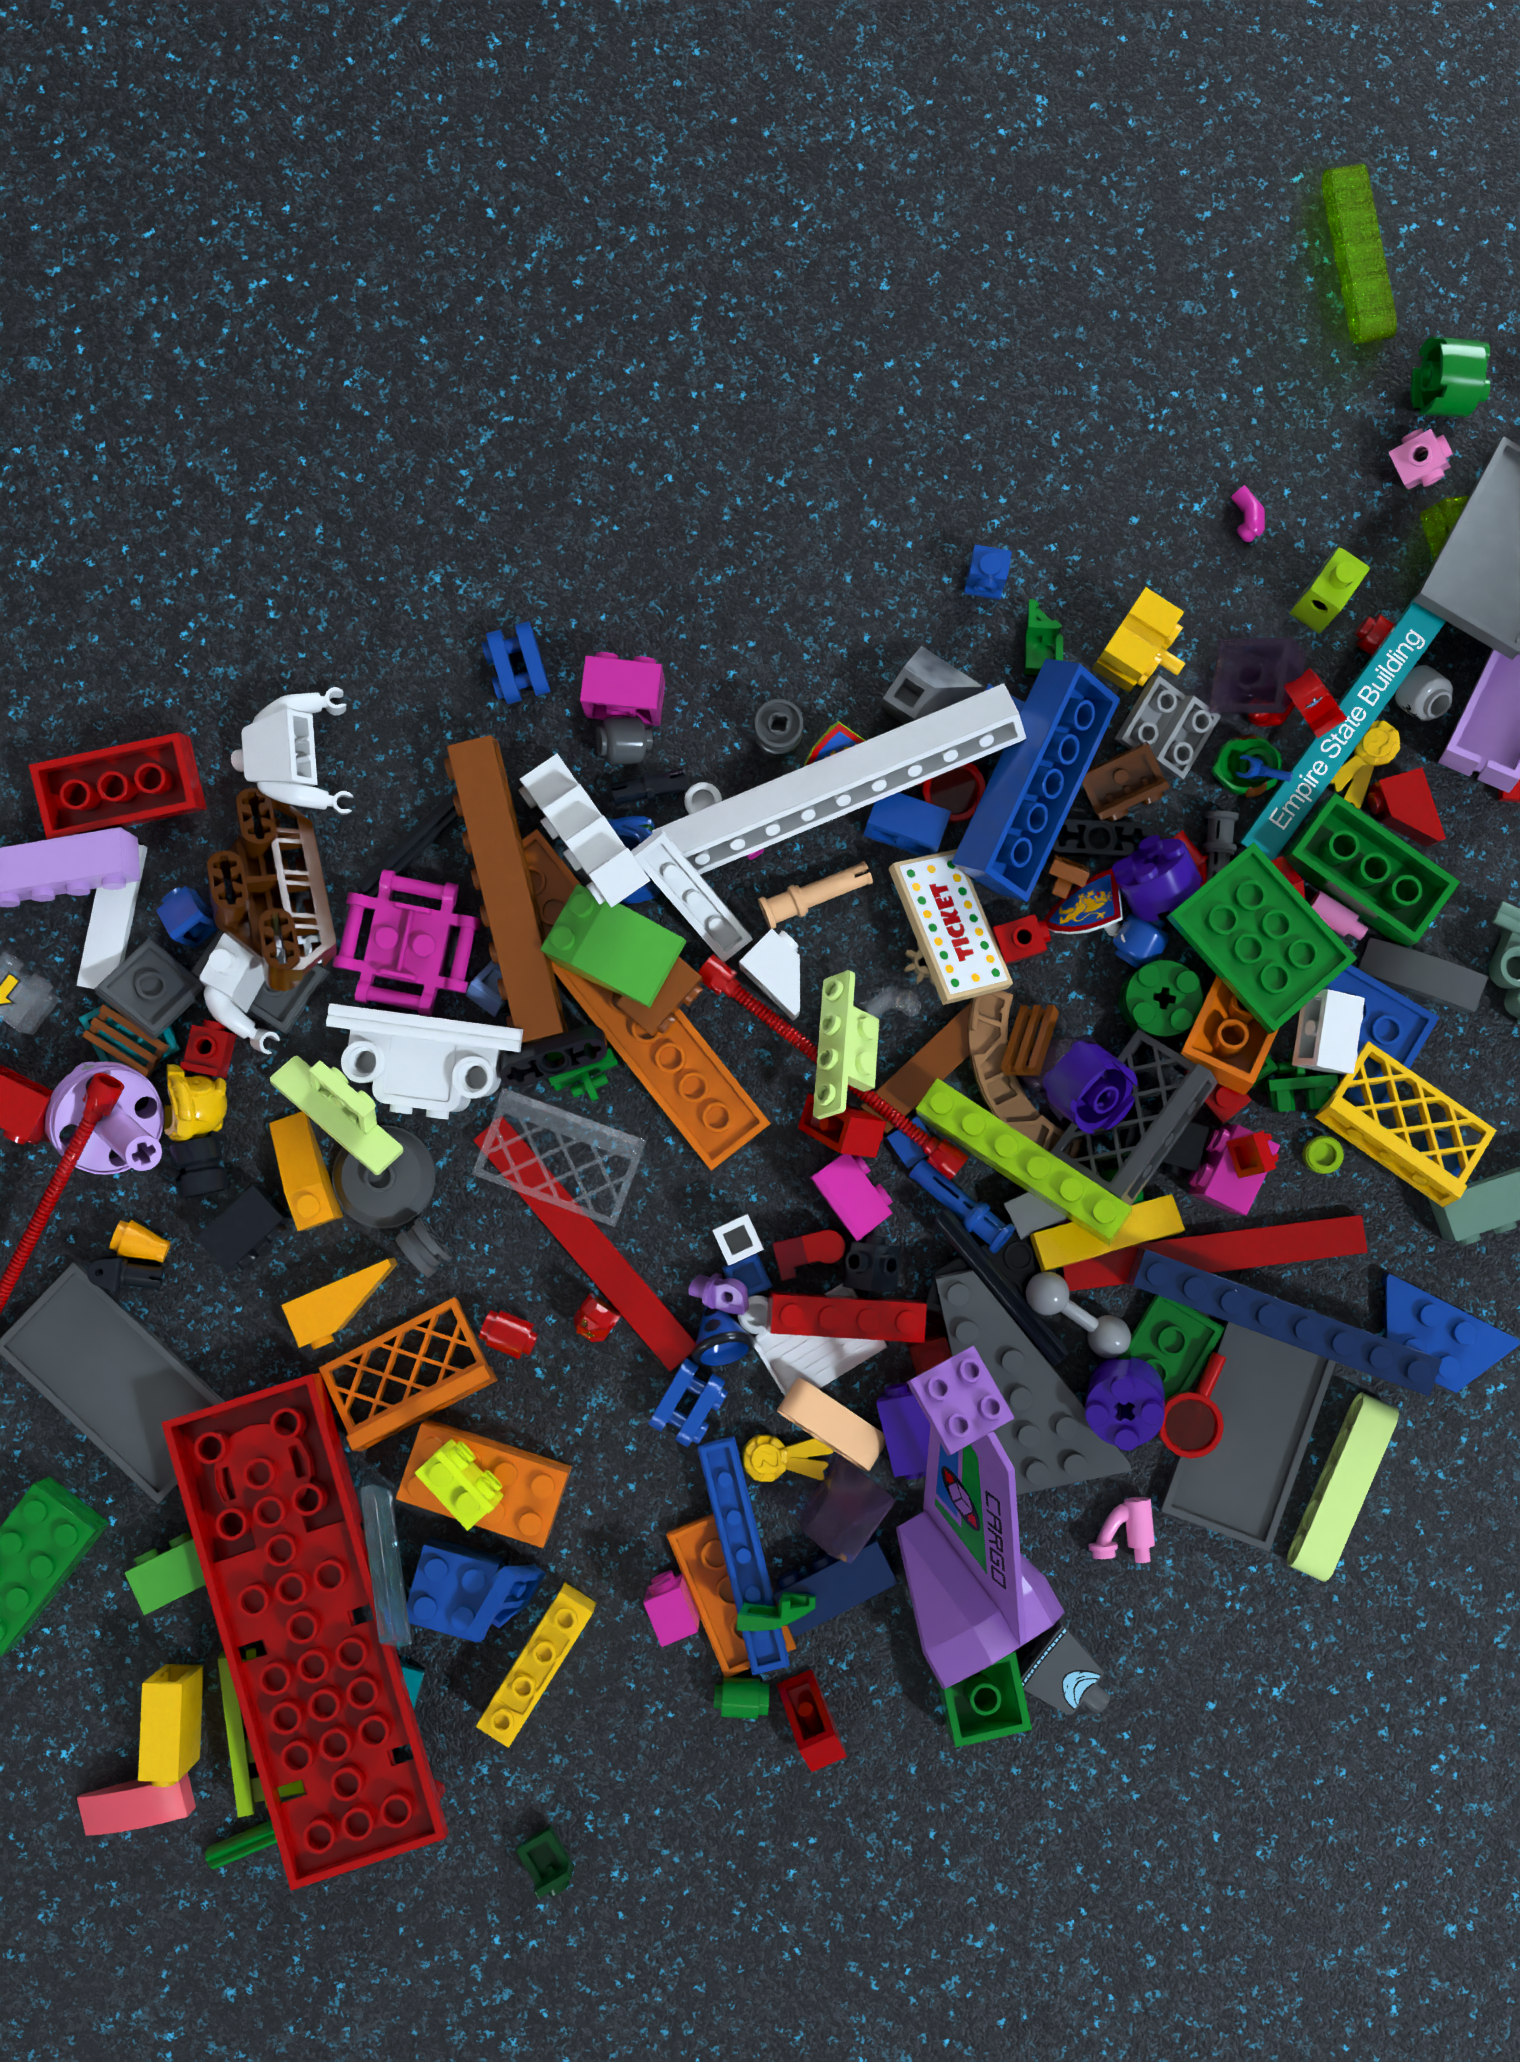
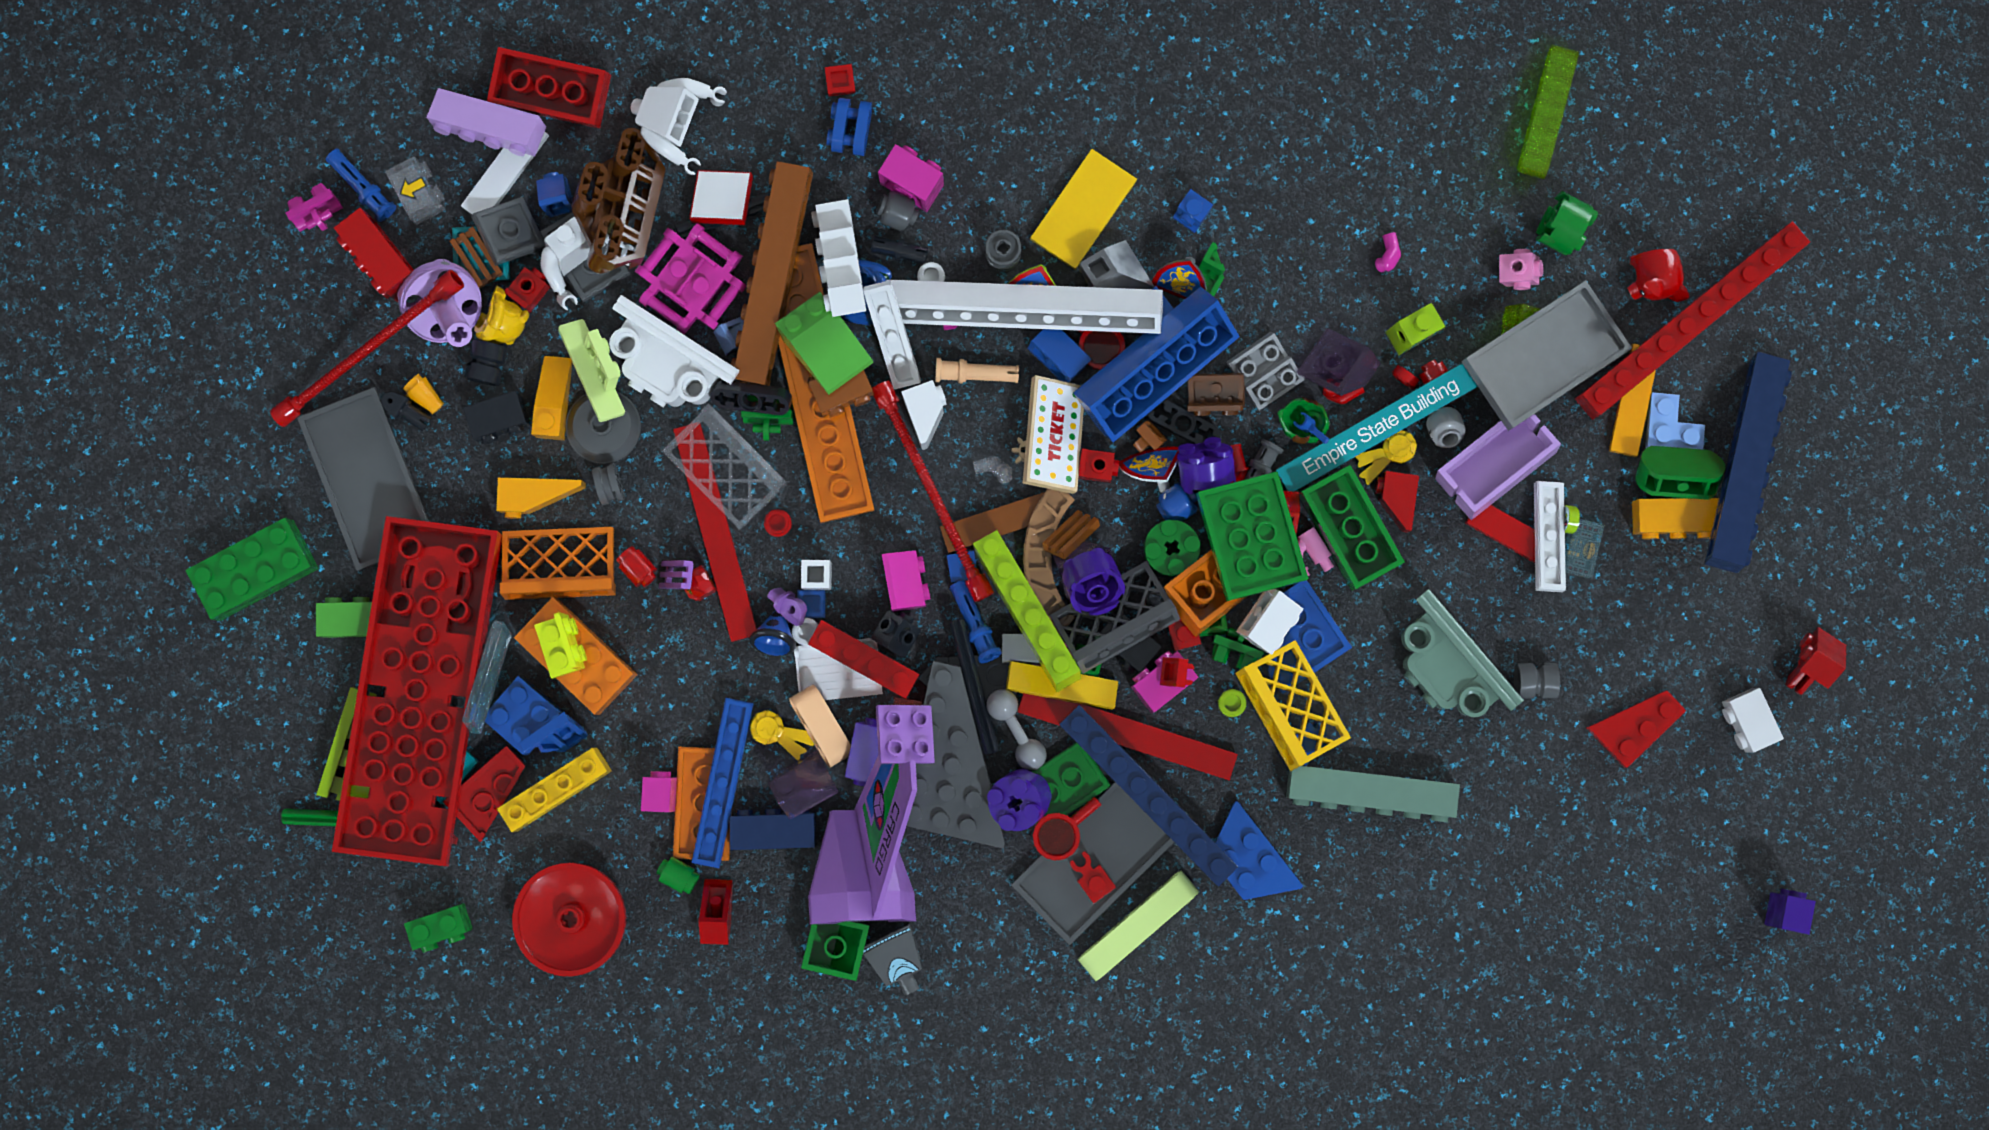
camera: 25 degrees right, 0 degrees up
(134, 1806) = (253, 757): coral slope -> none
(170, 1723) = (301, 714): yellow brick -> none
(397, 824) = (721, 197): none -> white tile
(452, 1705) = (487, 791): none -> red wing
(469, 1910) = (443, 925): none -> green brick
(477, 612) = (840, 80): none -> red plate
(546, 1862) = (499, 920): dark green bracket -> none
(553, 1325) = (669, 574): none -> medium lavender tile
(632, 1821) = (569, 919): none -> red dish
(658, 1195) = (777, 523): none -> red plate
(709, 1393) = (729, 683): blue brick -> none
(763, 1617) = (735, 826): green slope -> none
(807, 1248) = (859, 603): leg -> none
(844, 1048) = (947, 481): yellowish green bracket -> none
(848, 1133) = (920, 533): red slope -> none
(851, 632) = (1083, 209): none -> yellow tile
(1013, 660) = (1180, 278): none -> shield
(1139, 1529) = (991, 889): bright pink plant -> none
(1142, 643) = (1270, 305): yellow brick -> none
(1260, 1456) = (1094, 880): none -> red plate
(1315, 703) = (1365, 398): red leg -> none
(1342, 655) = (1405, 377): none -> red tile
(1423, 975) = (1353, 614): dark grey slope -> none

